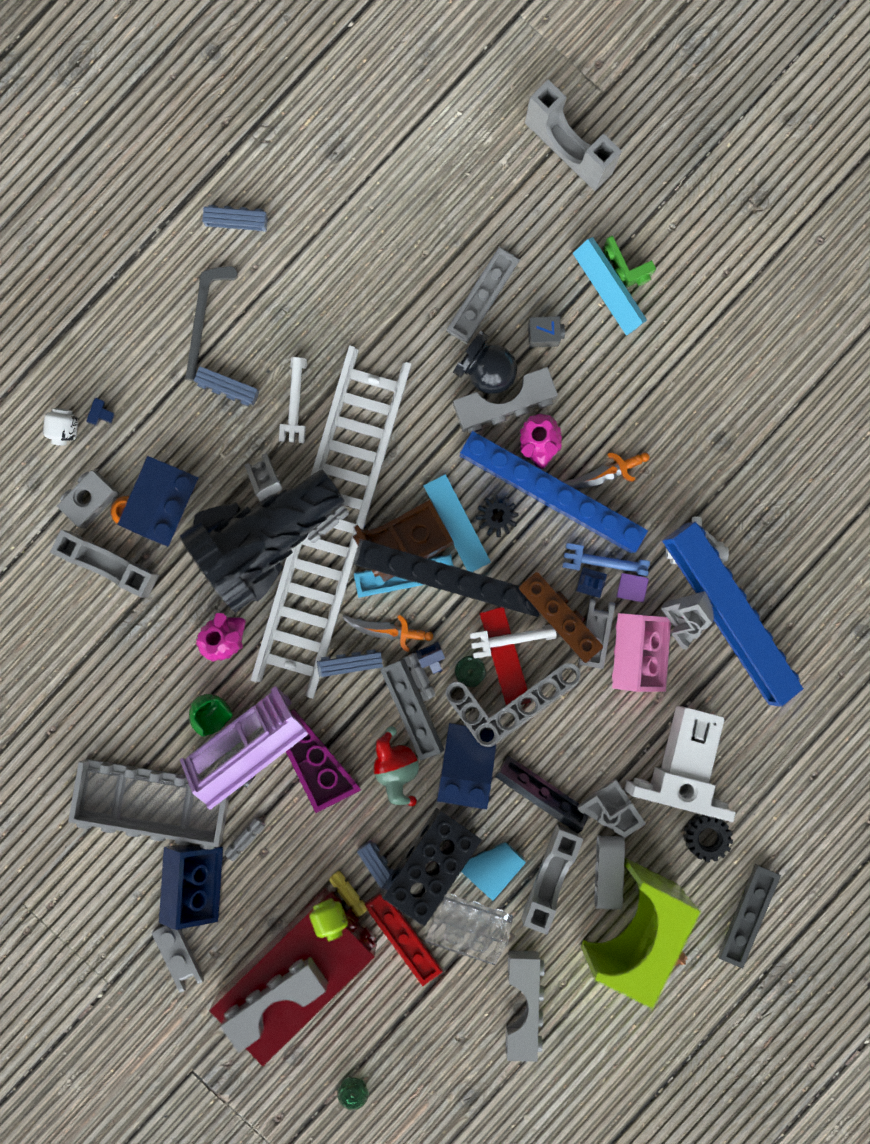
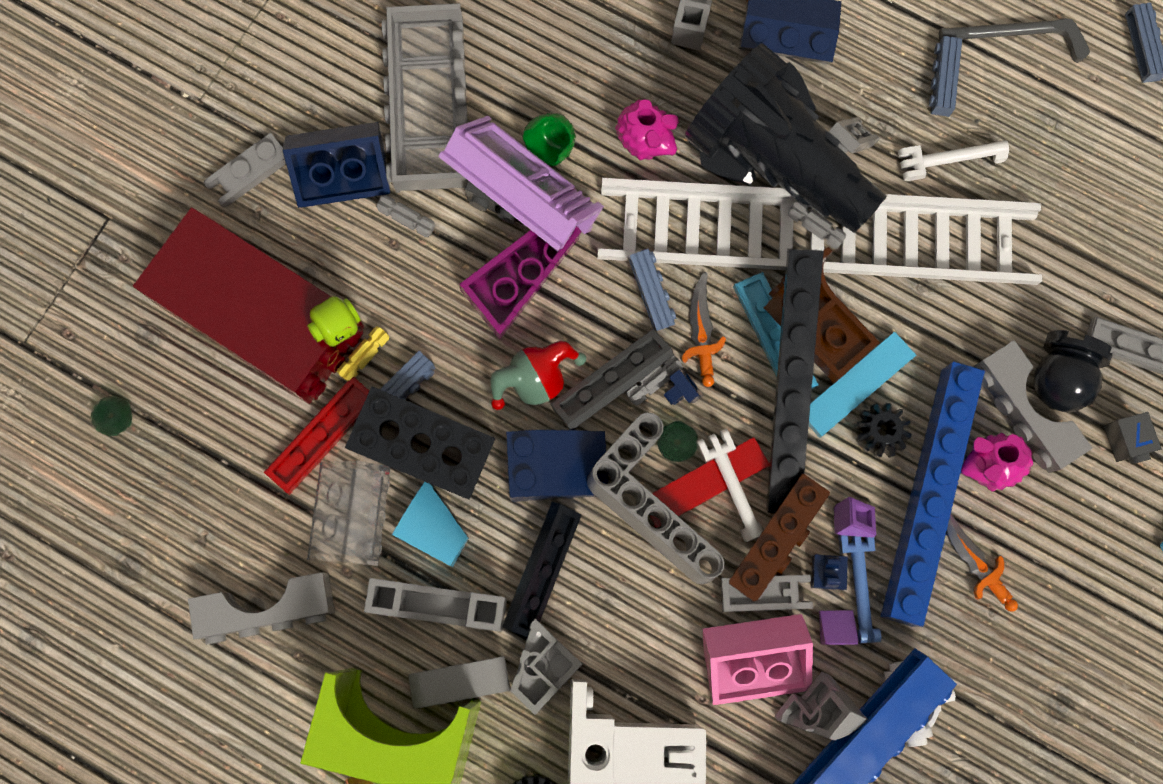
camera: 80 degrees right, 10 degrees down
(302, 985) = (187, 253): light grey arch -> none
(557, 554) = (854, 518): none -> medium lavender slope

